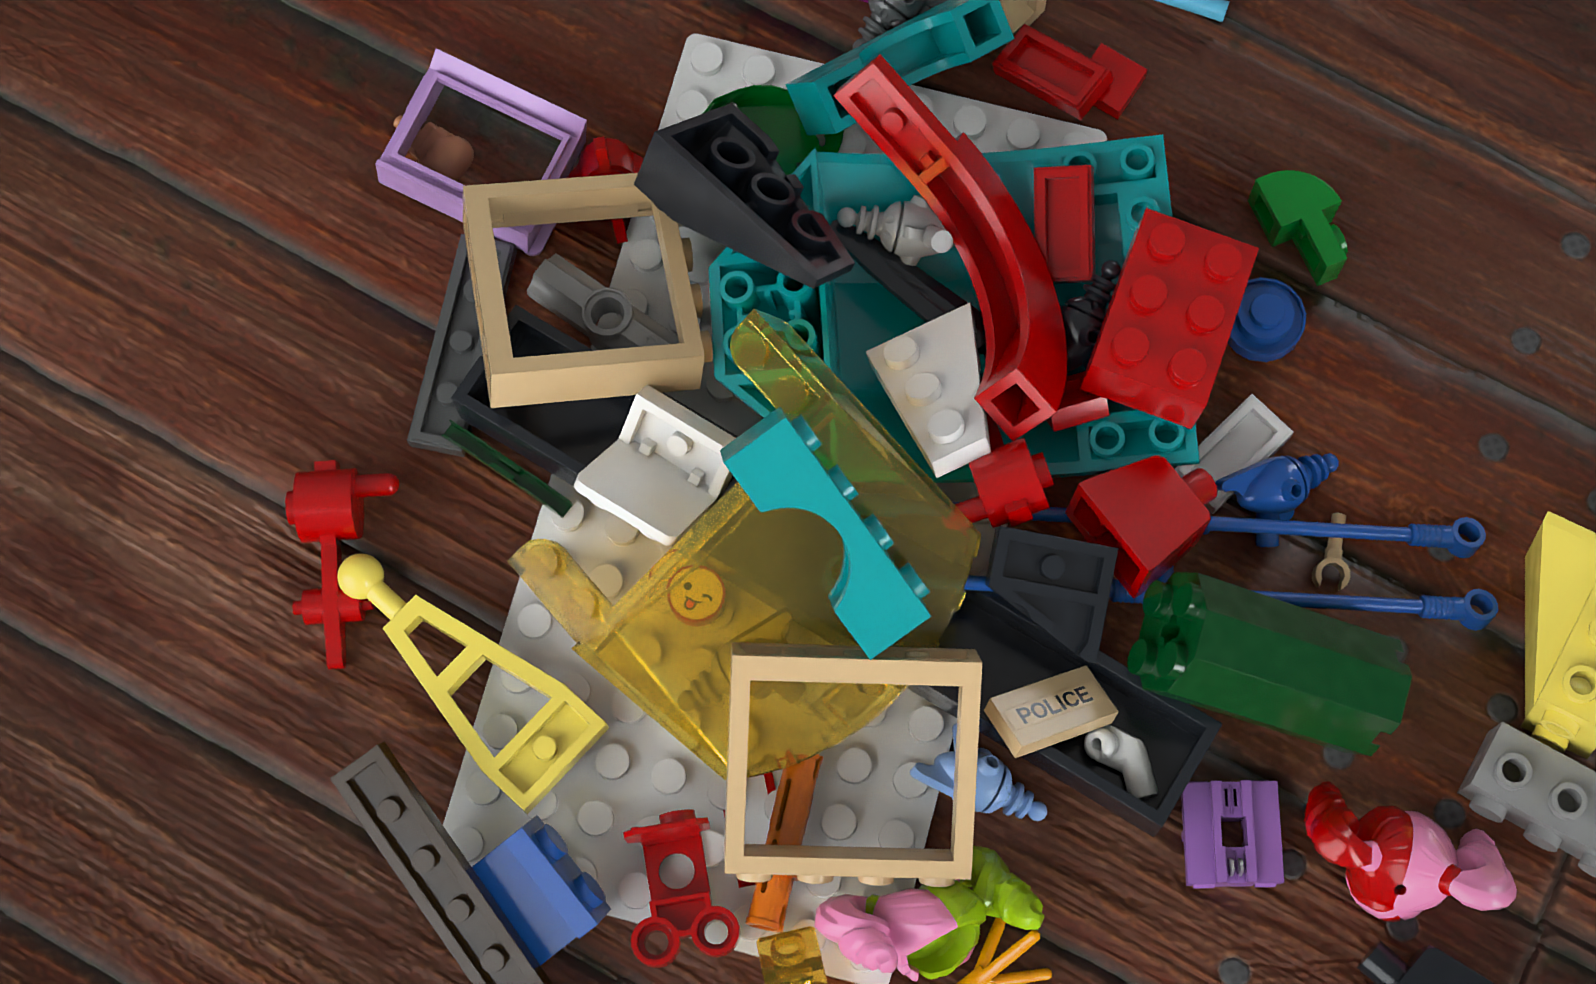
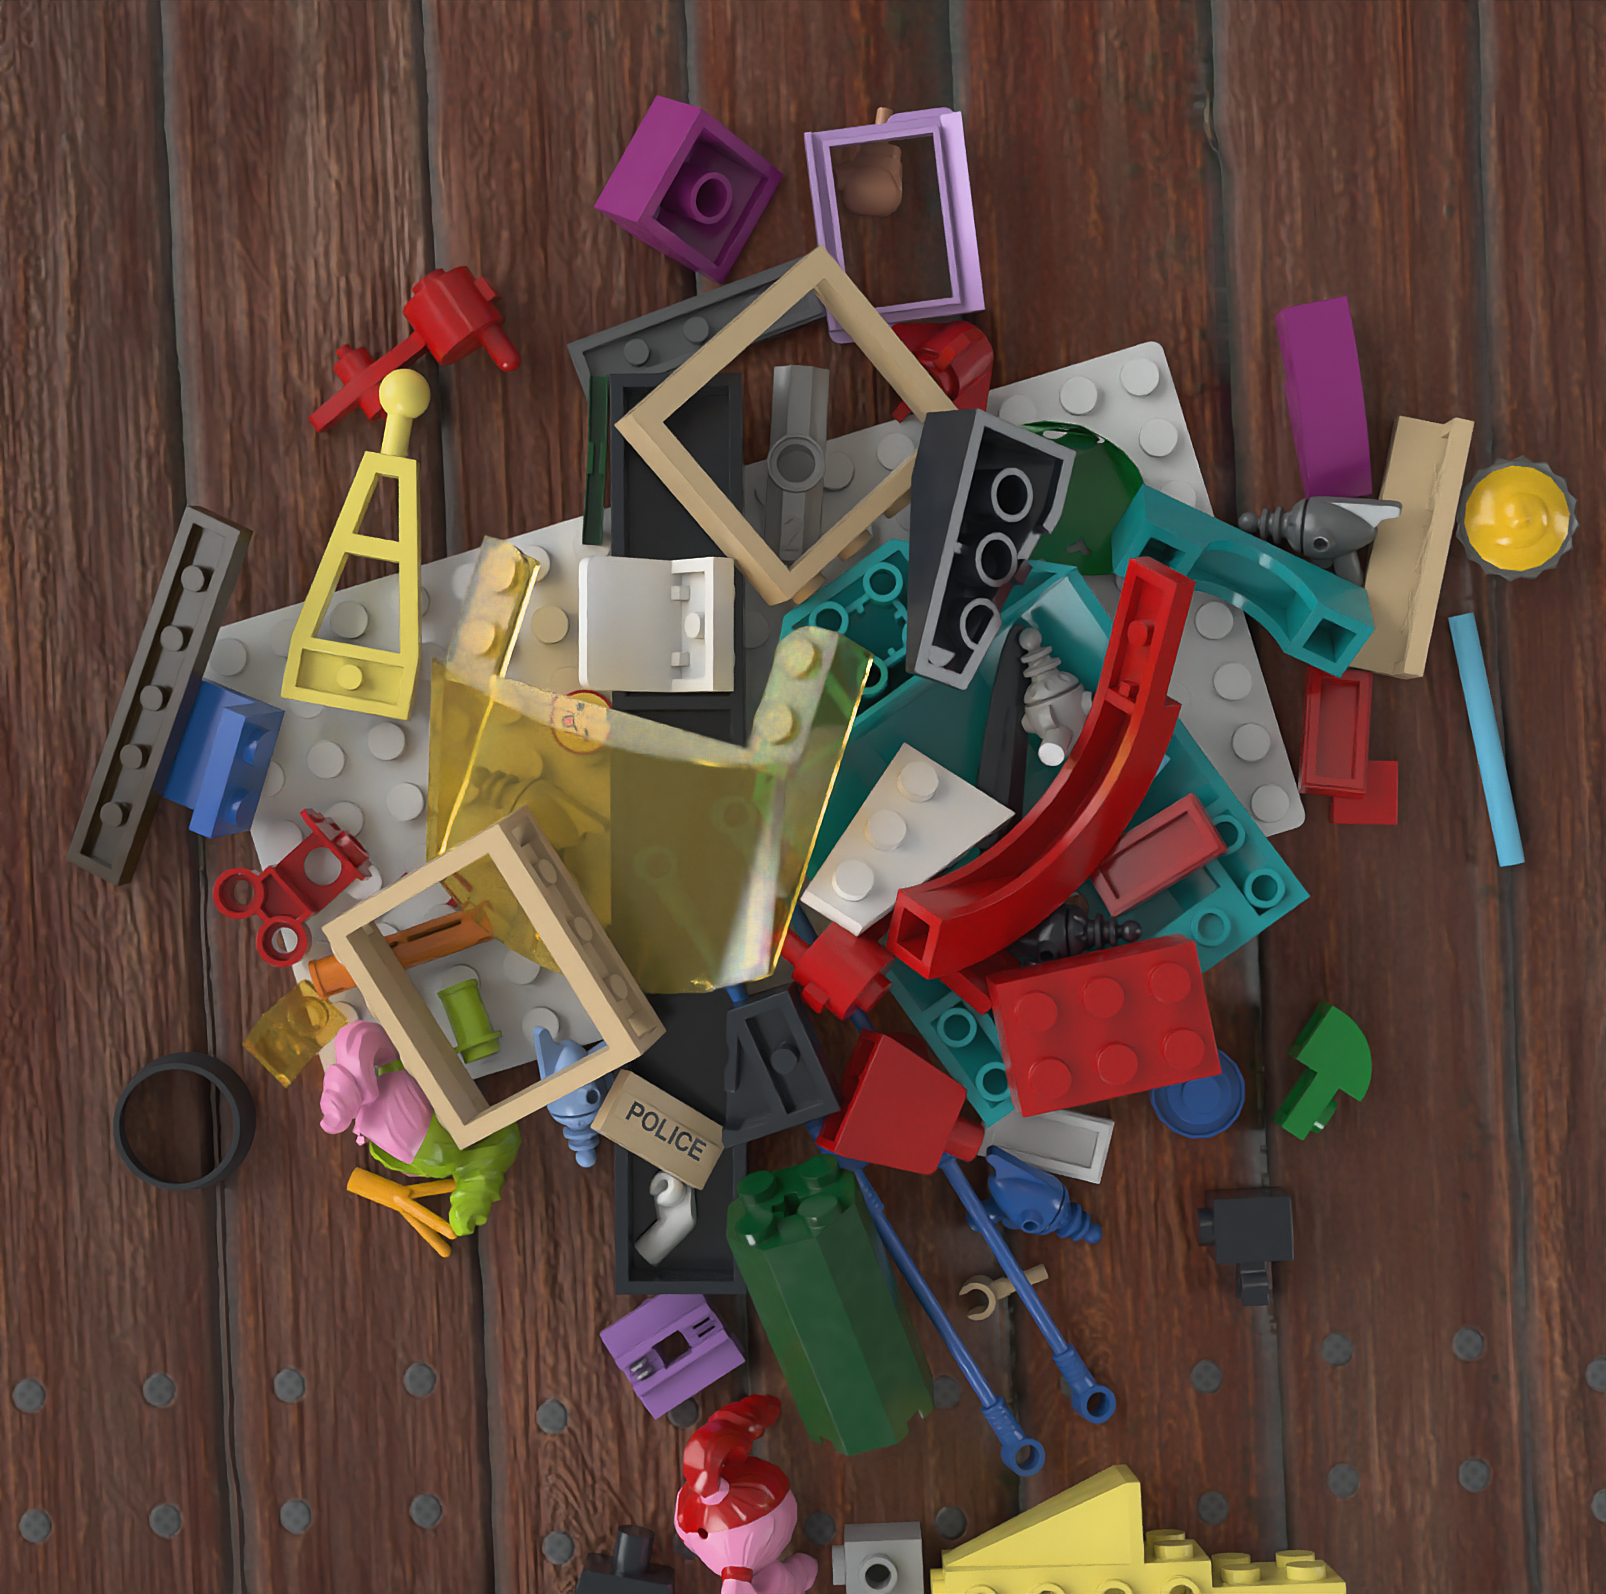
camera: 50 degrees right, 15 degrees up
(355, 282) = (689, 188): none -> magenta slope
(780, 470) = (685, 770): teal arch -> none
(872, 825) = (469, 1021): none -> lime pin
(1395, 342) = (1247, 1230): none -> black brick

